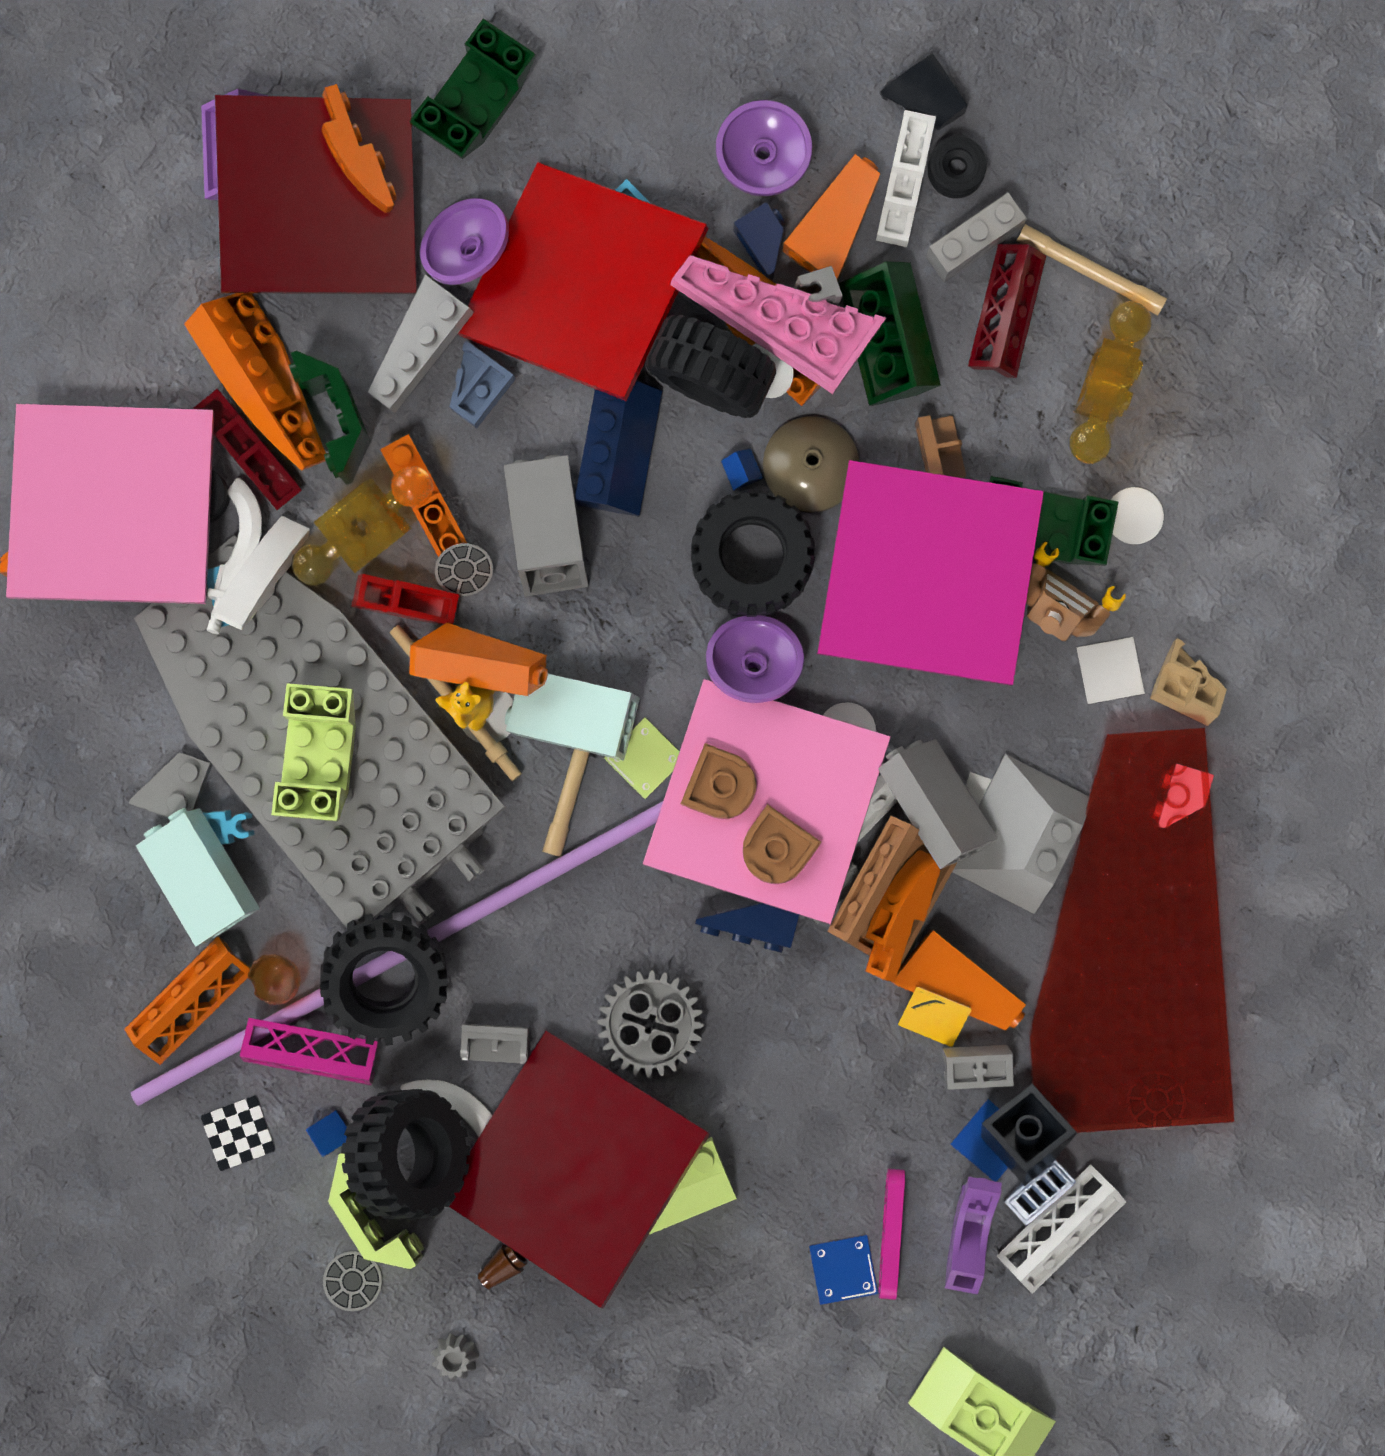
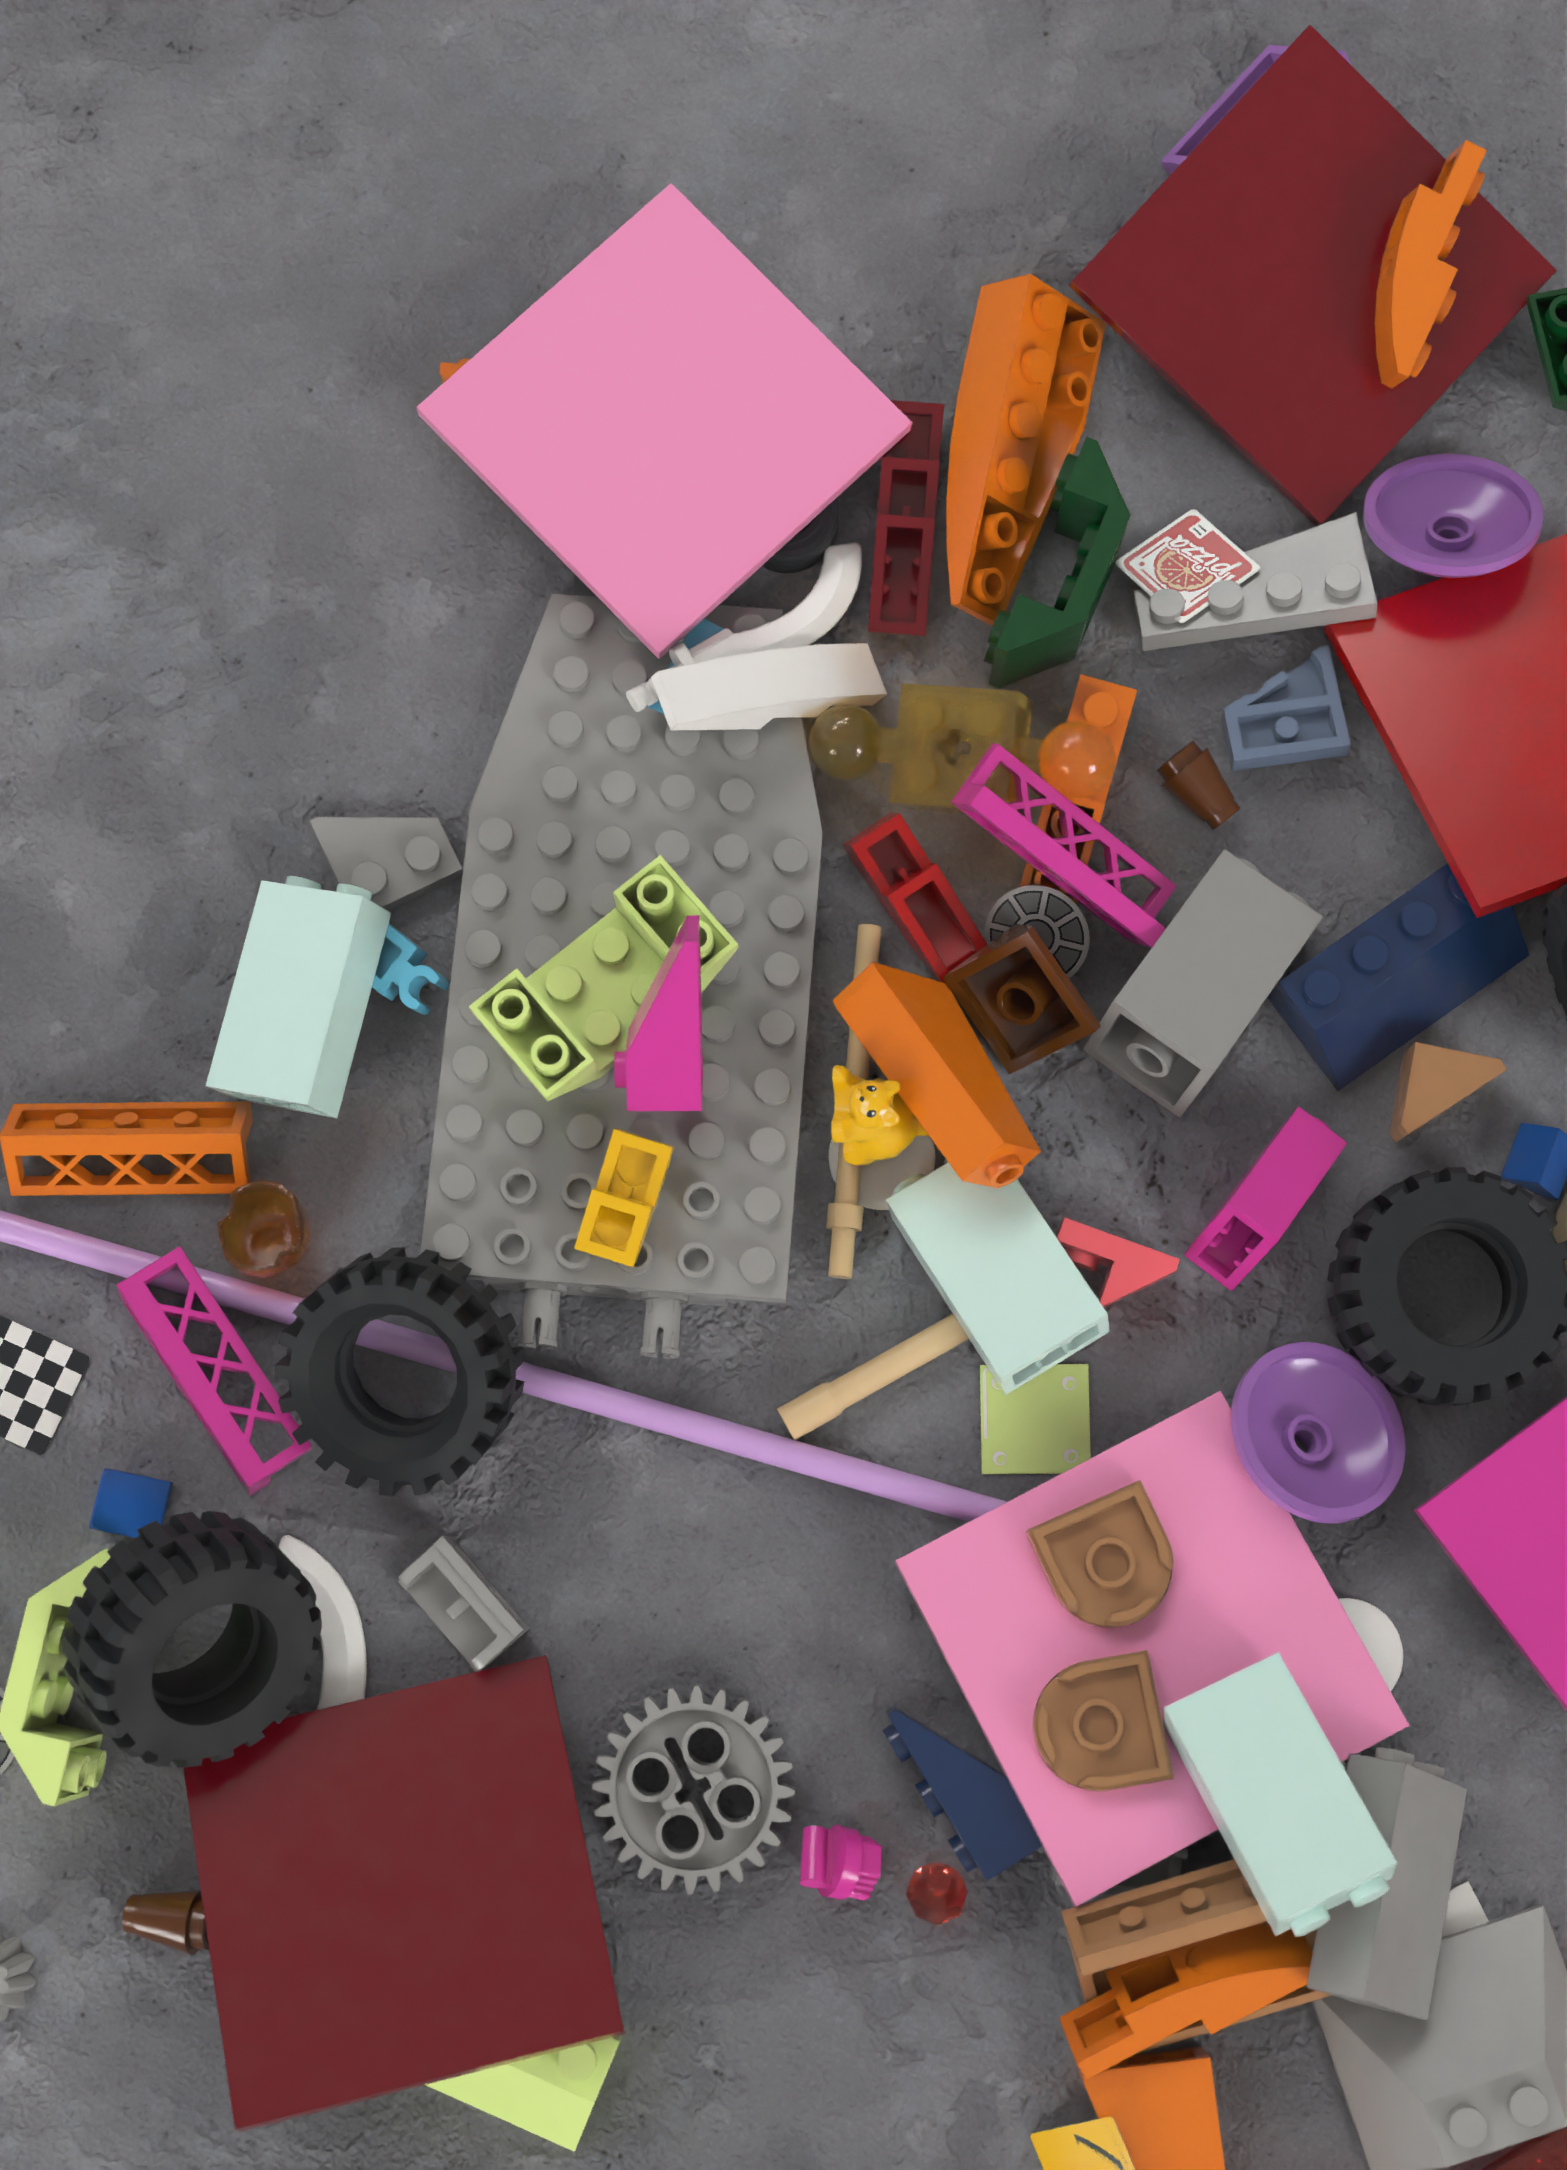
camera: 50 degrees right, 5 degrees down
(359, 752) = (665, 1038): none -> dark pink slope
(377, 358) = (1189, 559): none -> sticker
(404, 828) = (624, 1197): none -> yellow slope
(445, 535) = (1061, 863): none -> dark pink fence
(467, 446) = (1199, 785): none -> reddish brown cone
(481, 601) = (1020, 998): none -> reddish brown slope
(623, 663) = (1128, 1263): none -> coral slope
(650, 587) = (1266, 1199): none -> dark pink slope
(673, 478) = (1434, 1081): none -> medium nougat slope
(731, 996) = (839, 1862): none -> dark pink piece
(778, 971) = (936, 1893): none -> clear red rock
(863, 809) = (1280, 1796): none -> light aqua brick

